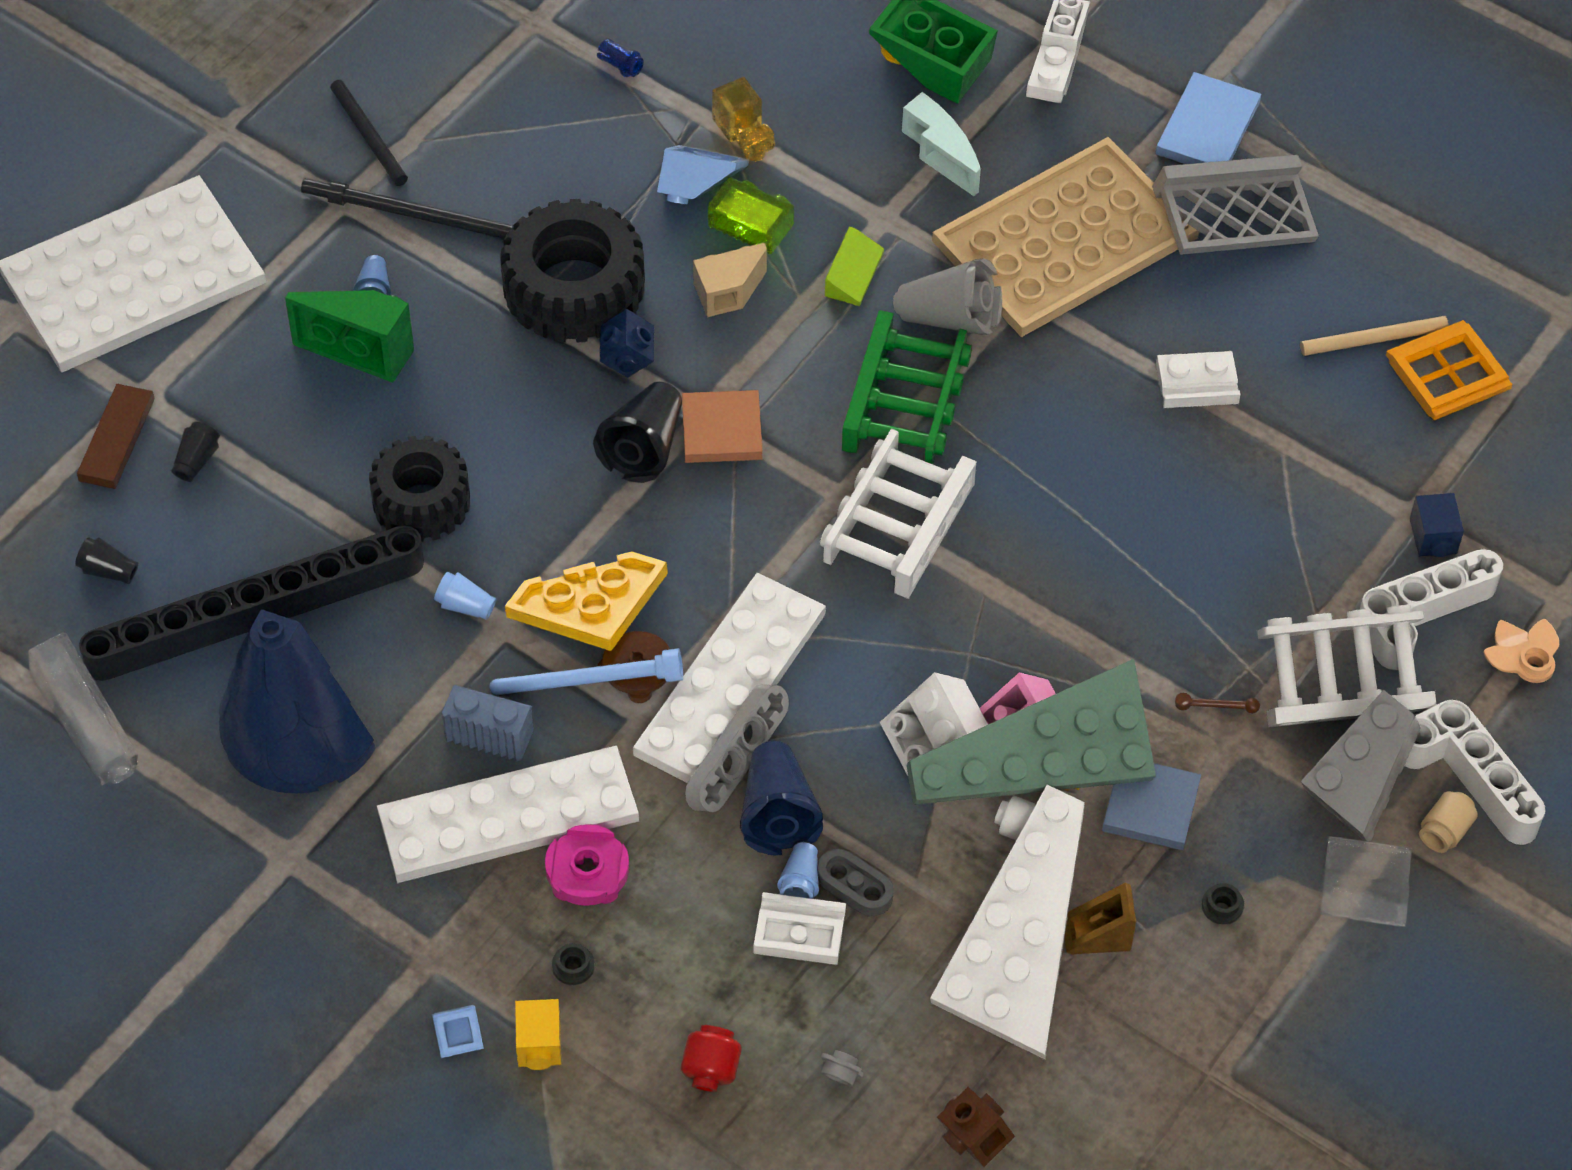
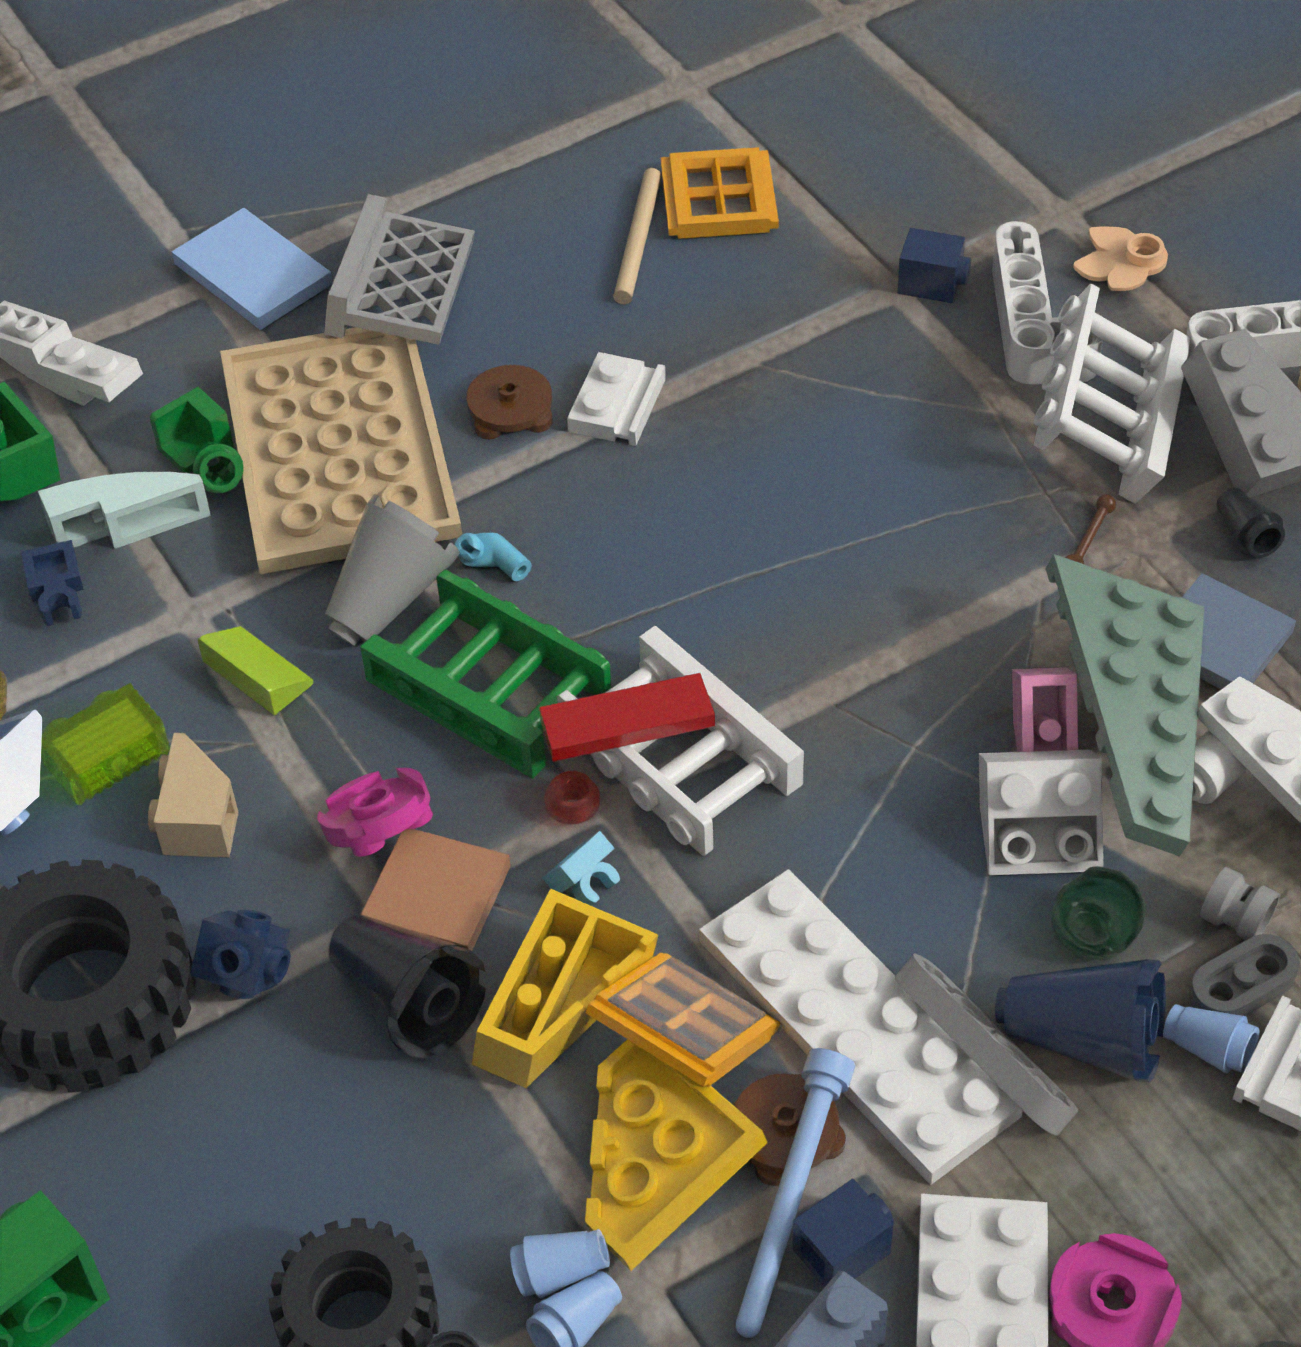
camera: 65 degrees left, 5 degrees down
(490, 572) = (557, 1260): none -> light blue cone
(568, 711) = (843, 1233): none -> dark blue brick
(670, 507) = (547, 989): none -> yellow wedge
(681, 581) = (683, 1018): none -> piece
(763, 370) = (375, 809): none -> dark pink plate
(772, 492) = (580, 866): none -> medium azure tile
(832, 465) = (572, 786): none -> clear red plate
(862, 783) = (1098, 913): none -> clear green hair
(868, 133) = (53, 578): none -> dark blue plate
(885, 468) = (627, 716): none -> red tile
(911, 867) = (1239, 904): none -> light grey wheel
(1001, 176) = (225, 473): none -> green cone
(1014, 356) = (492, 551): none -> medium azure arm
(1032, 151) = (187, 425): none -> green panel
(1161, 318) = (509, 401): none -> reddish brown piece
(1271, 799) = (1252, 525): none -> black cone

